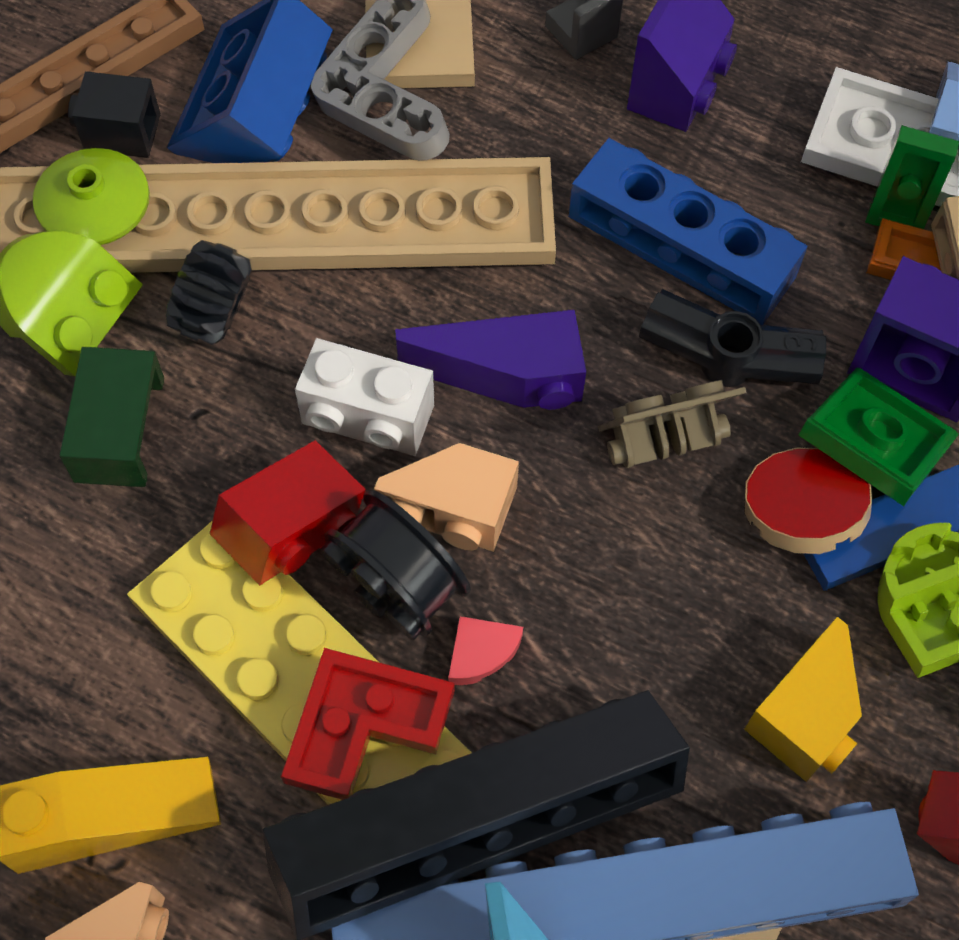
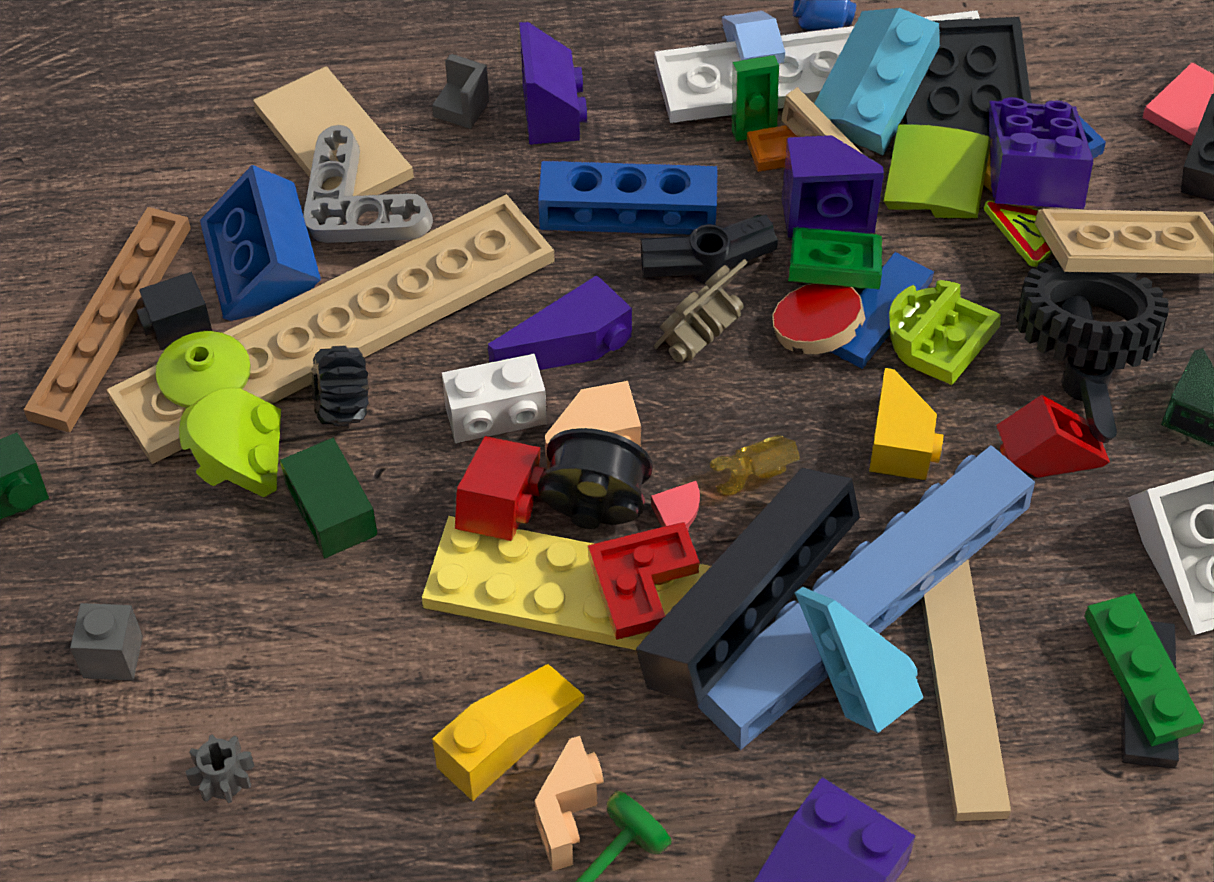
camera: 30 degrees left, 10 degrees down
(614, 642) = (762, 459): none -> clear yellow plate

